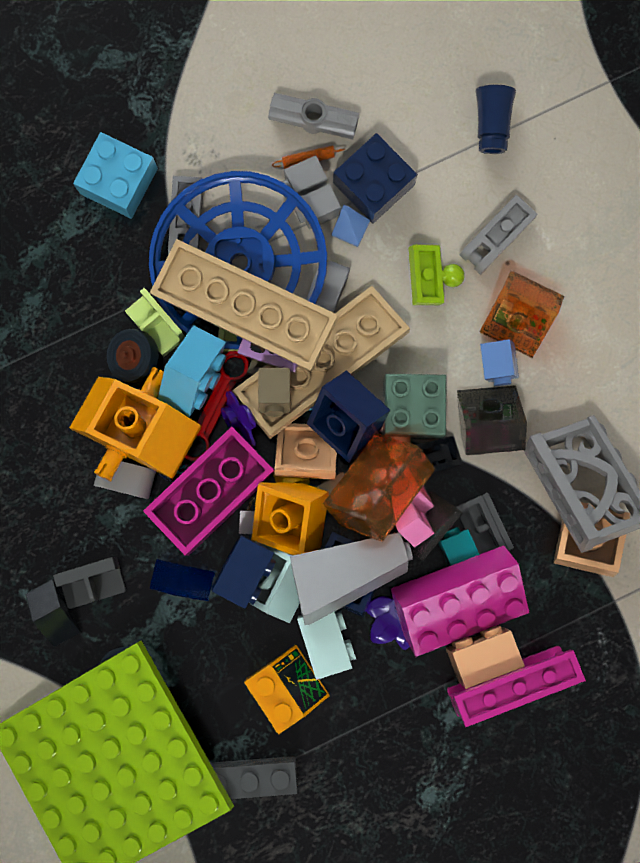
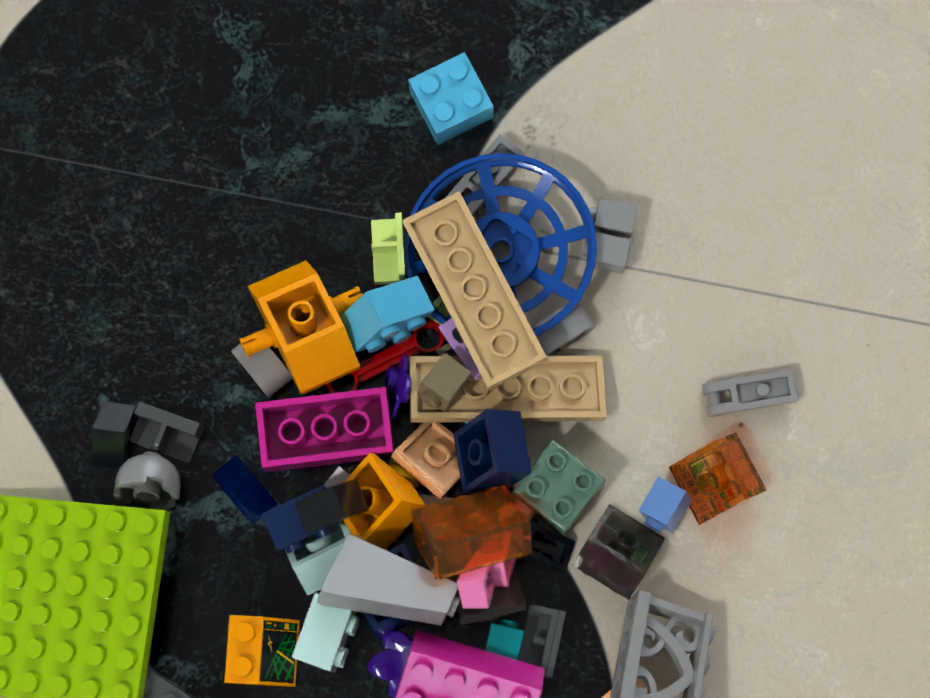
camera: 40 degrees right, 5 degrees down
(105, 628) = (148, 481): none -> light grey cylinder
(132, 355) = (347, 263): black wheel -> none
(261, 546) = (331, 506): none -> black slope
(321, 153) = (643, 207): orange piece -> none
(332, 119) = (675, 186): light grey piece -> none
(350, 226) = (623, 290): medium blue slope -> none
(374, 178) = (675, 263): dark blue brick -> none
(428, 276) = (660, 382): lime plate -> none
(494, 117) = (823, 287): dark blue plant -> none

